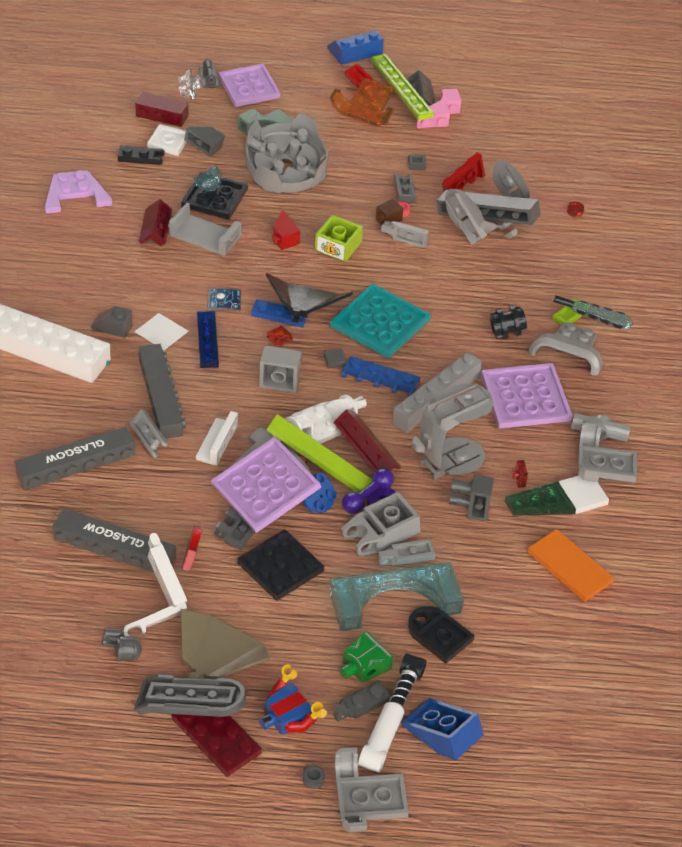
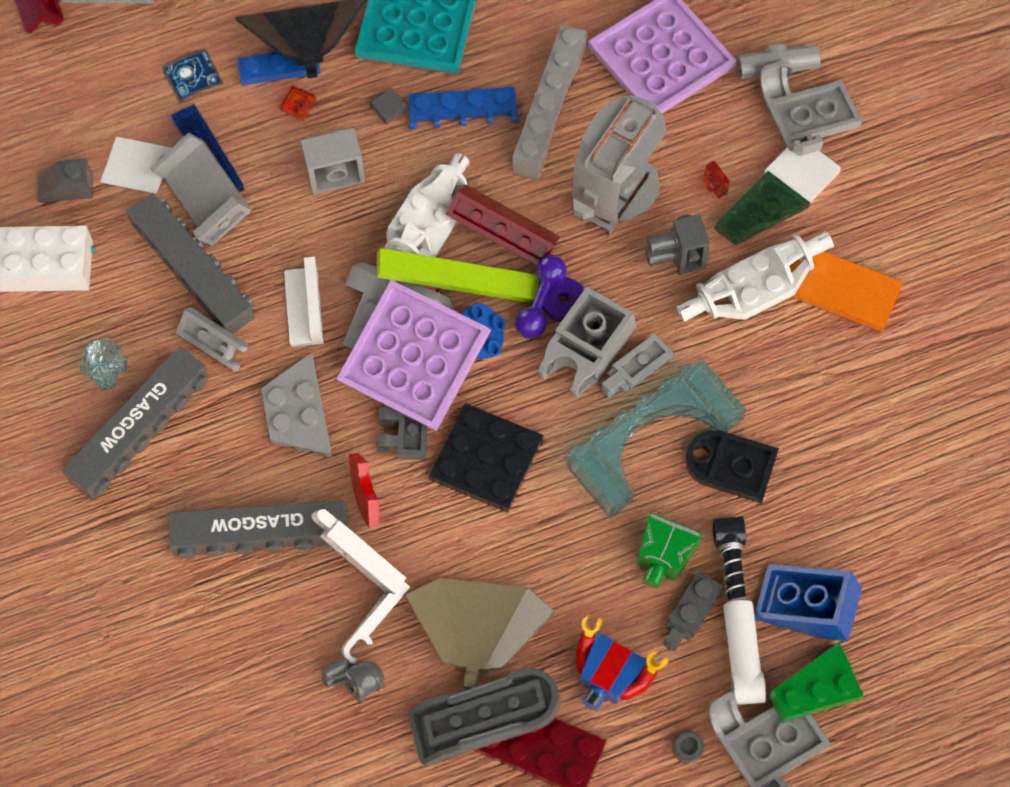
camera: 20 degrees left, 20 degrees up
(75, 418) = (103, 362): none -> clear light blue hair
(178, 491) = (296, 409): none -> light grey wing
(191, 353) = (202, 188): none -> light grey panel
(419, 776) = (817, 687): none -> green wing
(514, 538) = (757, 280): none -> white plate

